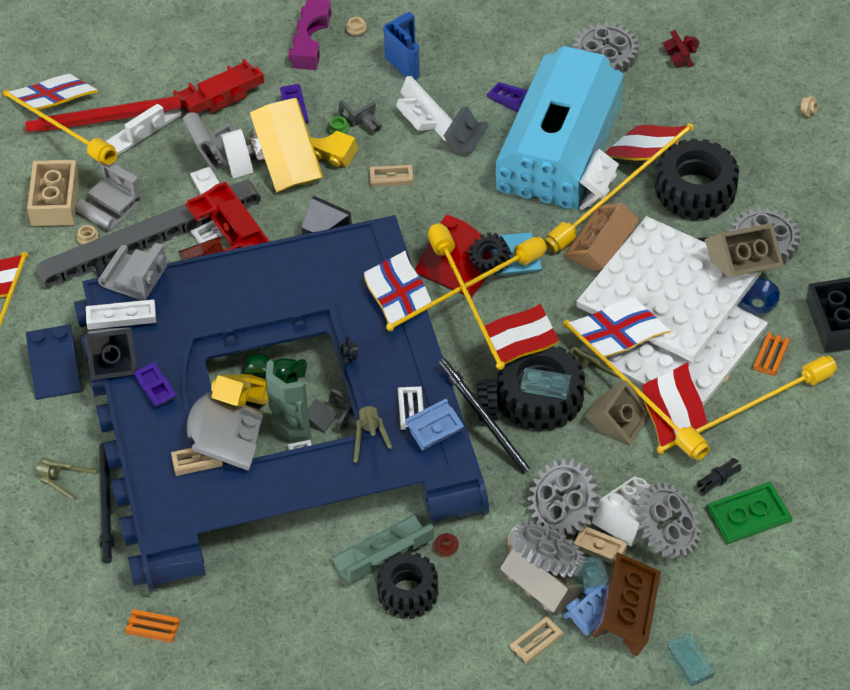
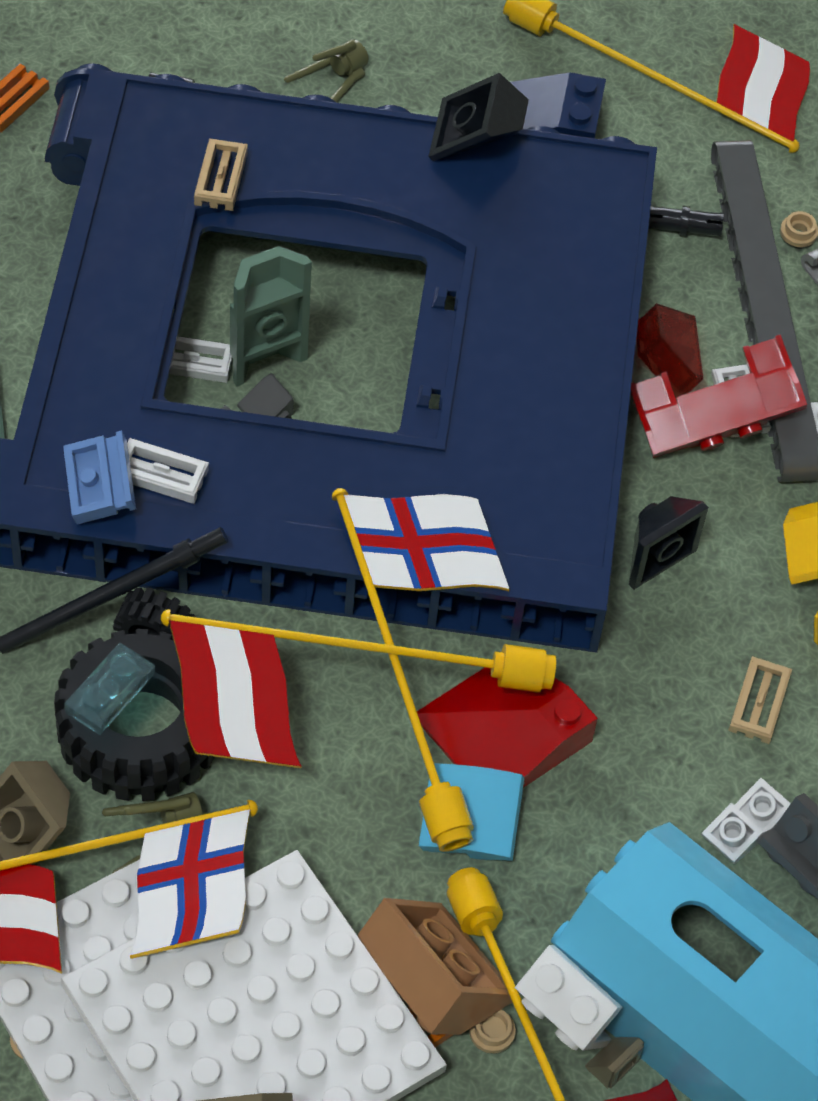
camera: 105 degrees right, 5 degrees up
(120, 314) = (552, 162): white plate -> none
(135, 273) = (632, 202): light grey piece -> none
(154, 384) = (382, 169): dark purple slope -> none
(224, 430) = (250, 205): light grey slope -> none
(239, 389) = (354, 318): yellow arch -> none
(285, 369) = (375, 372): dark green animal -> none
(349, 350) = (318, 420): black plate -> none
(369, 421) = (161, 397): olive plant -> none
(465, 164) = (742, 824): none -> white slope
(482, 246) = (467, 730): black tyre -> none

